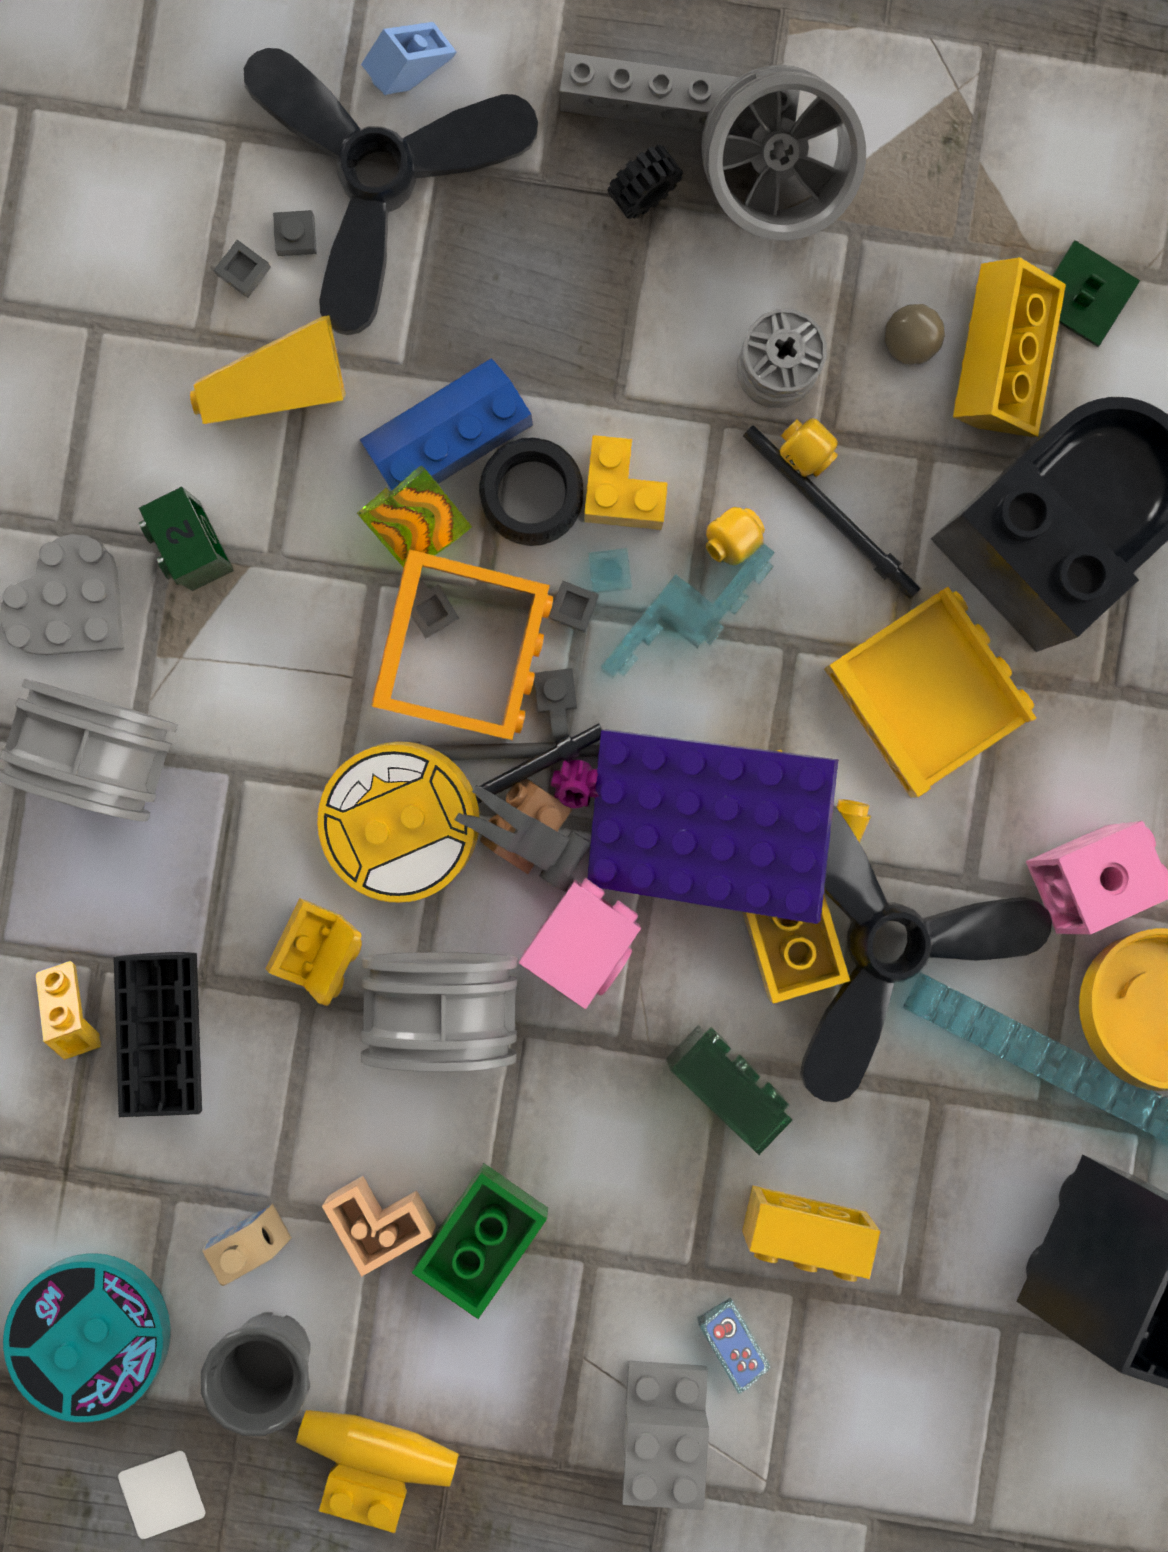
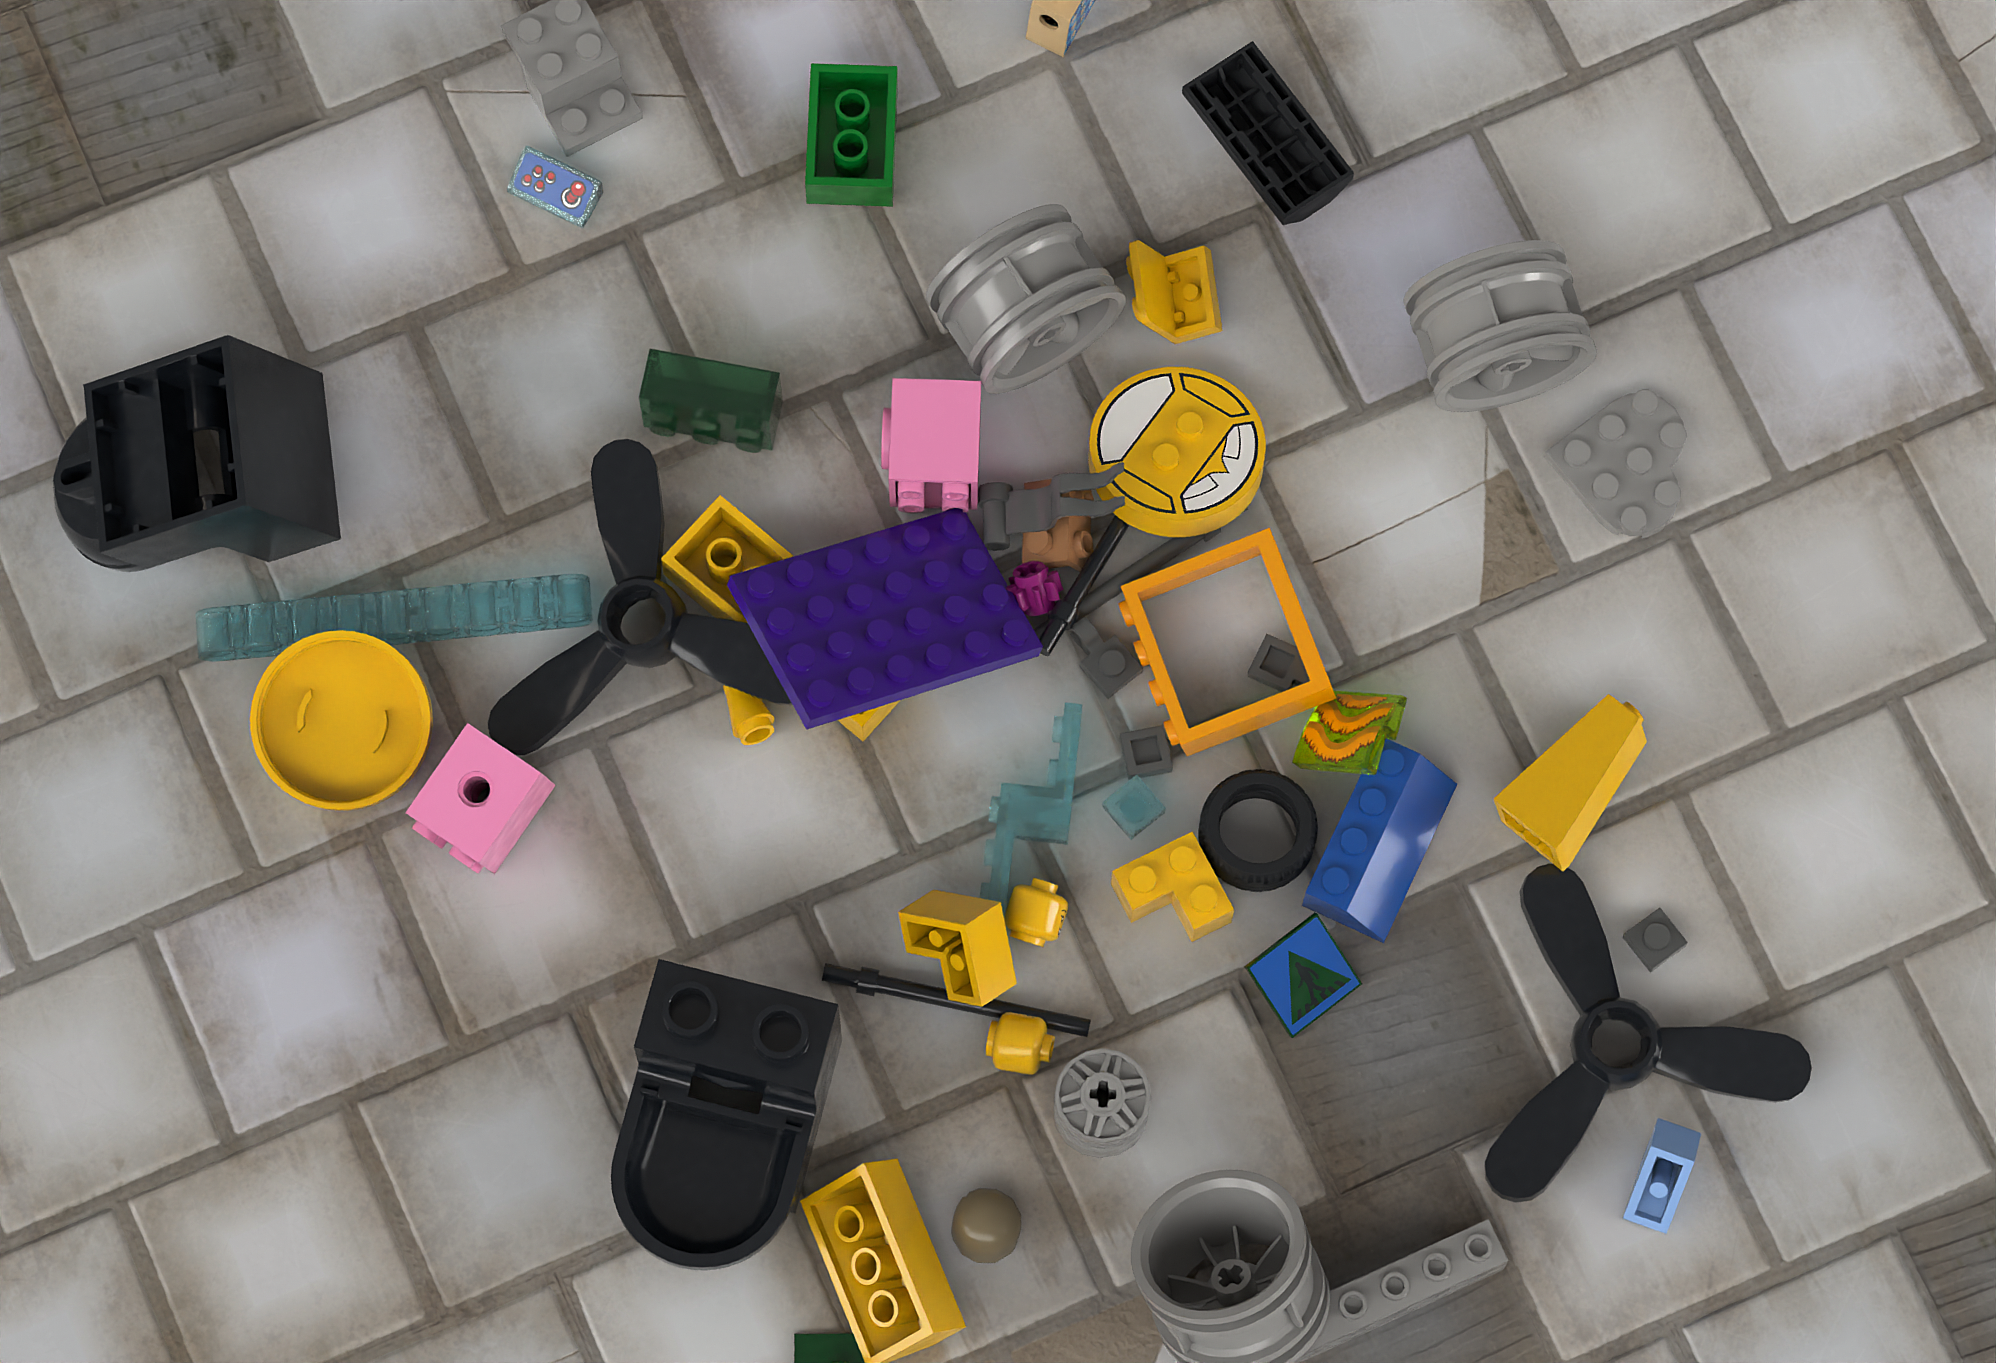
camera: 150 degrees right, 15 degrees down
(62, 1014) = (1370, 102): yellow bracket -> none
(185, 539) = (1548, 576): dark green brick -> none
(242, 268) = (1679, 870): dark grey plate -> none
(376, 1234) = (955, 82): light nougat brick -> none
(570, 364) = (1303, 975): none -> piece
(645, 181) = (1347, 1190): black tyre -> none
(806, 541) = (967, 939): none -> yellow brick
(810, 1234) = (553, 319): yellow brick -> none
(930, 691) = (751, 884): yellow panel -> none

